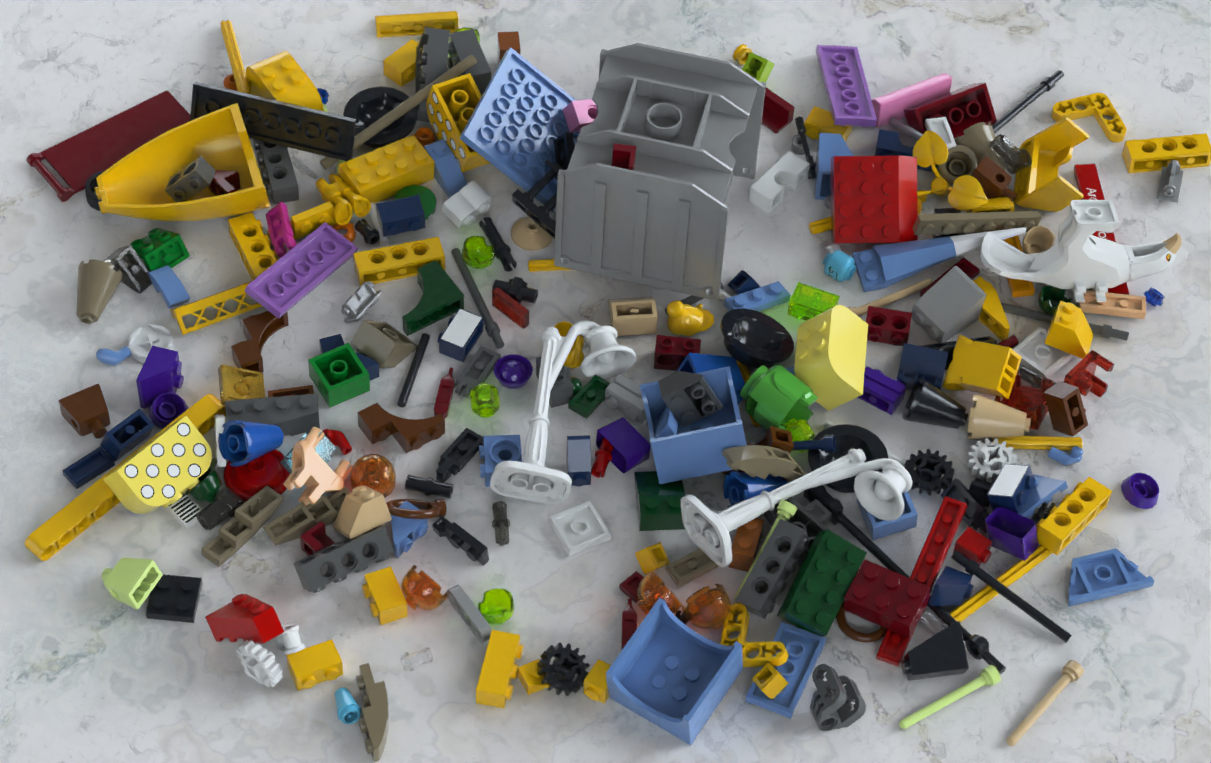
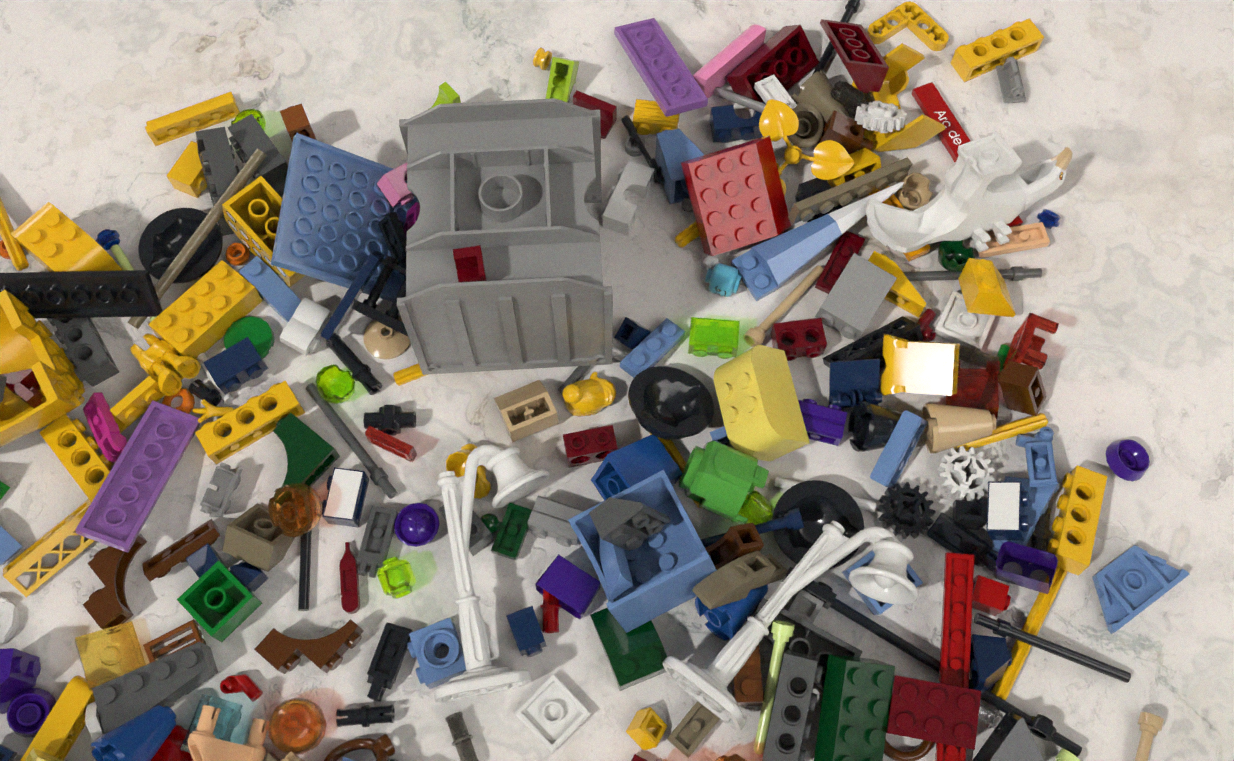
camera: 15 degrees left, 15 degrees up
(297, 340) = (162, 562): none -> reddish brown plate
(368, 245) = (210, 411): none -> yellow bar
(420, 325) = (295, 509): none -> clear orange cylinder
(517, 182) = (352, 294): none -> dark blue tile
(939, 422) = (898, 449): none -> medium blue slope
(1023, 117) = (857, 54): none -> dark red slope
(1026, 172) = (880, 117): none -> white gear
(1059, 467) = (1040, 464): none -> medium blue slope

